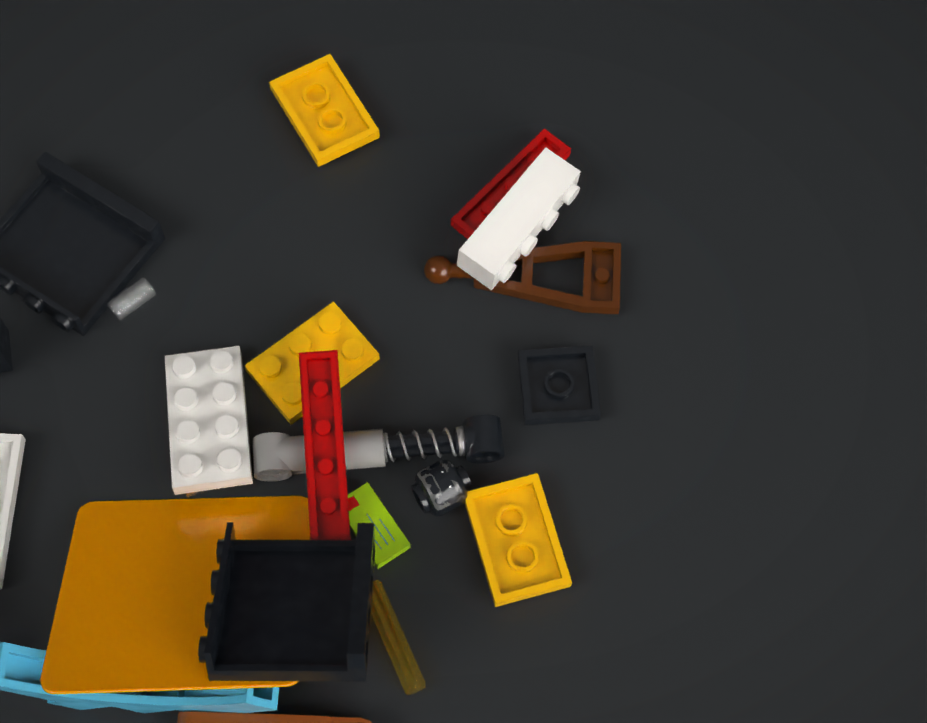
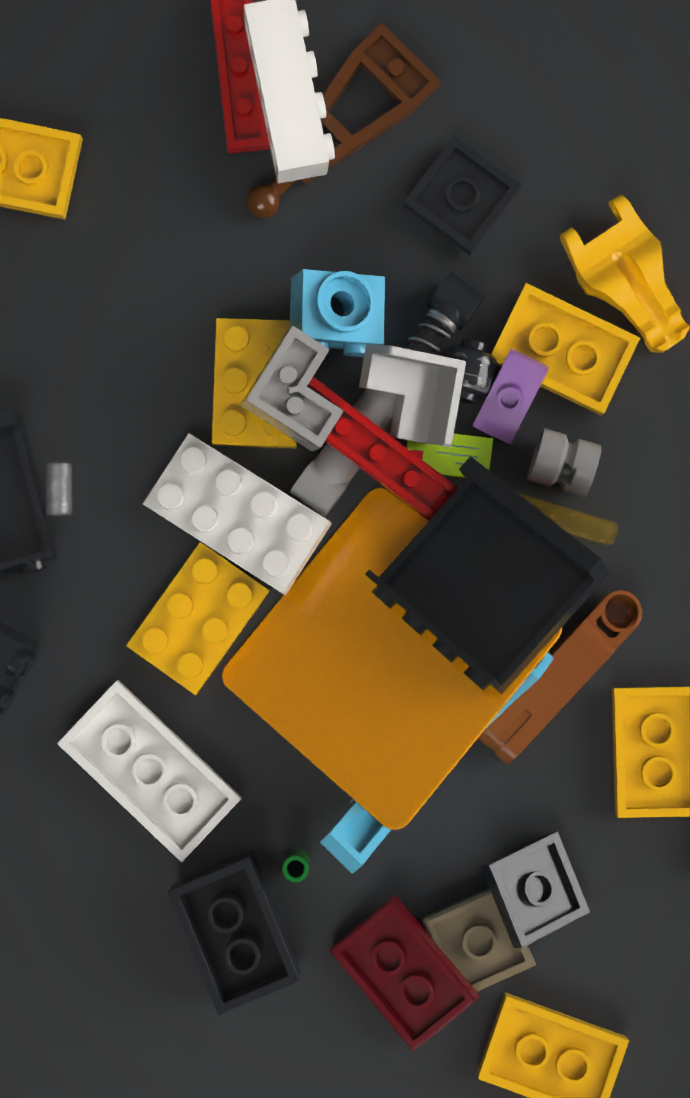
camera: 50 degrees left, 20 degrees up
(112, 456) = (198, 618): none -> yellow plate
(310, 363) = (282, 392): none -> light grey panel
(381, 365) = (362, 303): none -> medium azure brick
(401, 455) = (425, 388): none -> light grey panel
(433, 601) = (564, 462): none -> light grey wheel
(449, 529) = (510, 396): none -> medium lavender plate
(609, 535) = (628, 273): none -> yellow animal

